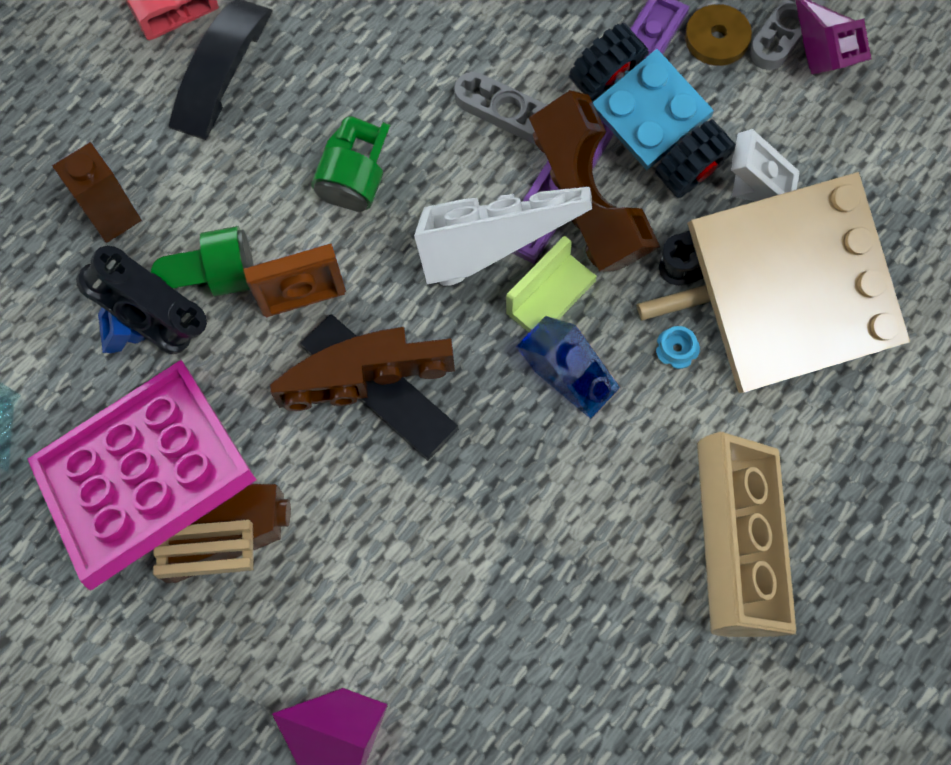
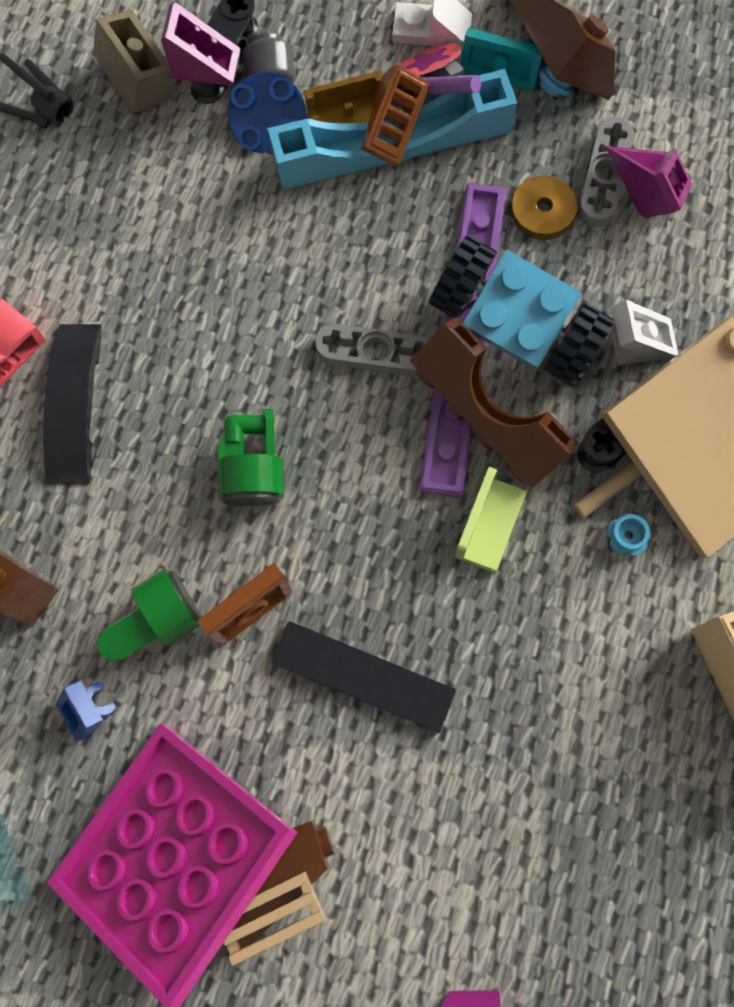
camera: 20 degrees left, 5 degrees up
(141, 300) = (99, 683): black piece -> none
(343, 369) = (328, 680): reddish brown slope -> none
(465, 238) = (399, 495): white wedge -> none
(568, 364) = (536, 590): clear blue slope -> none

